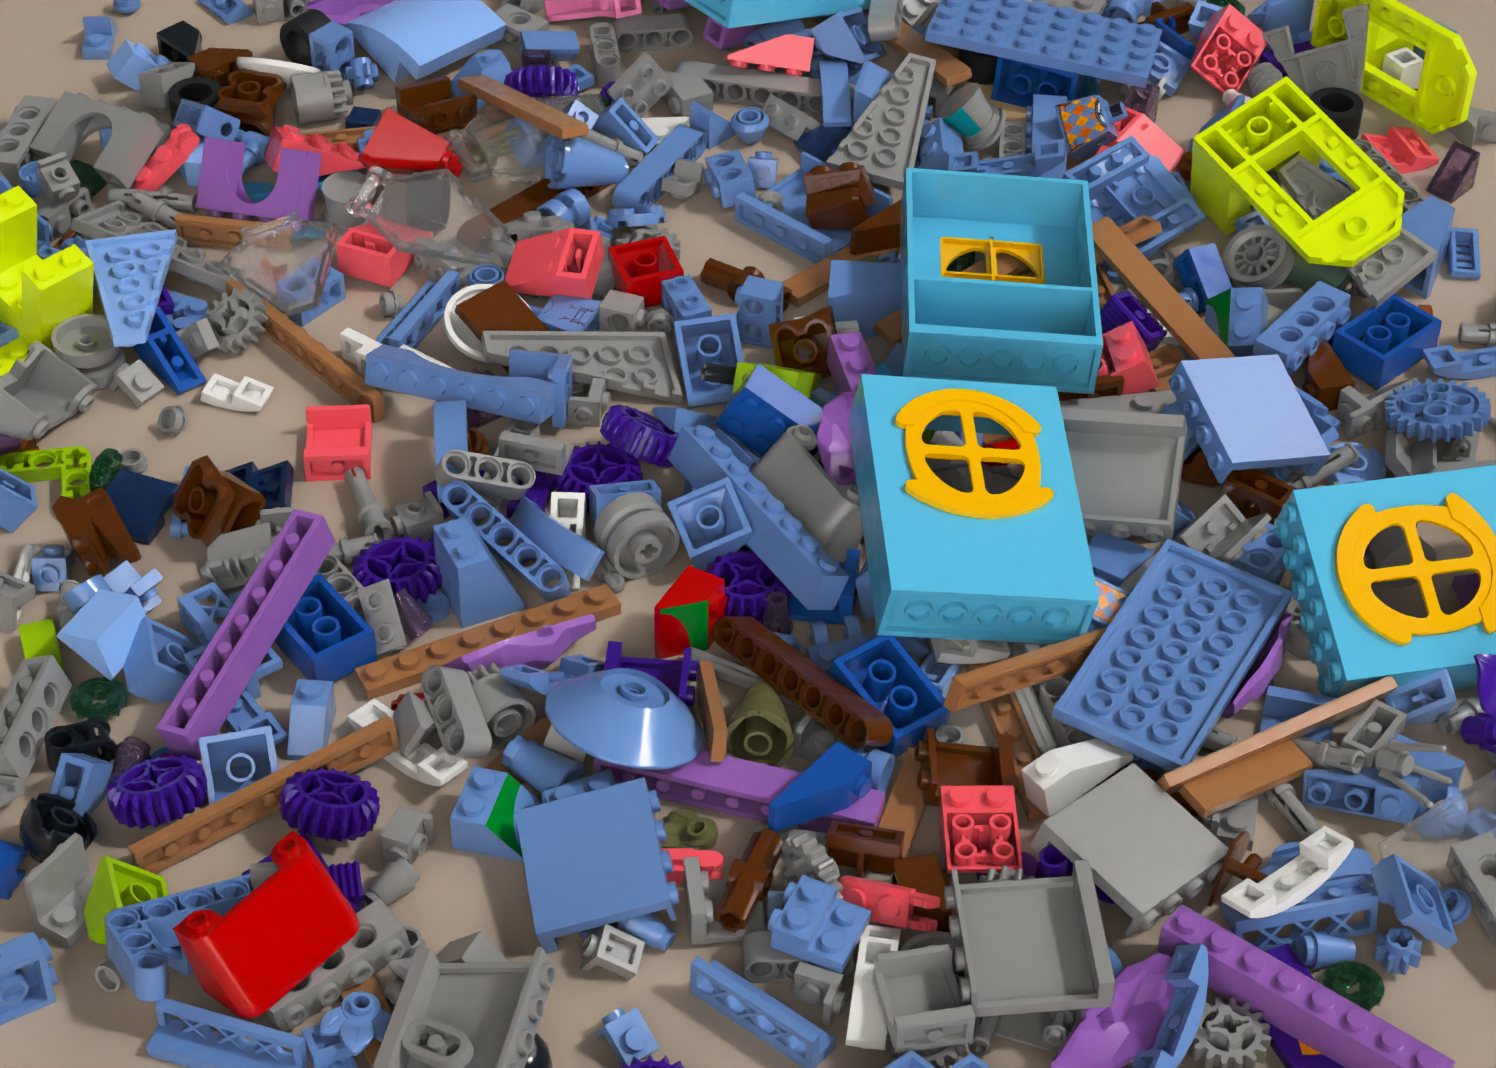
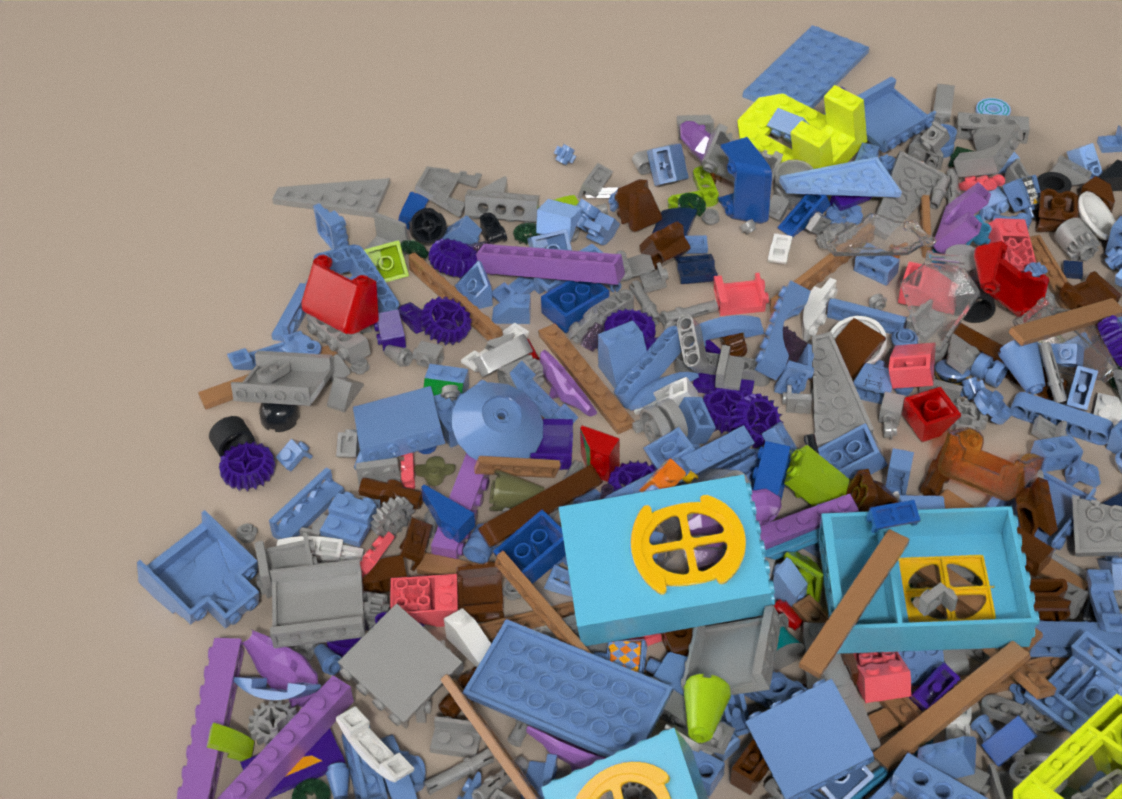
camera: 90 degrees right, 5 degrees up
(113, 846) = (412, 246): none -> clear green gear
(119, 345) = (751, 182): none -> blue windscreen
(527, 791) = (450, 391): none -> light grey plate
(683, 299) = (904, 436): medium blue brick -> none
(790, 212) = (967, 463): none -> clear orange windscreen
(814, 500) = (669, 475): none -> orange torso
(934, 256) = (893, 515): none -> blue hinge
(1067, 245) = (938, 595): none -> light grey bracket
(1067, 319) = (853, 604): none -> medium nougat tile
(1213, 502) = (705, 705): none -> lime cone
(1233, 867) = (399, 729): reddish brown shield -> none
(1245, 778) = (466, 736): medium nougat tile -> none

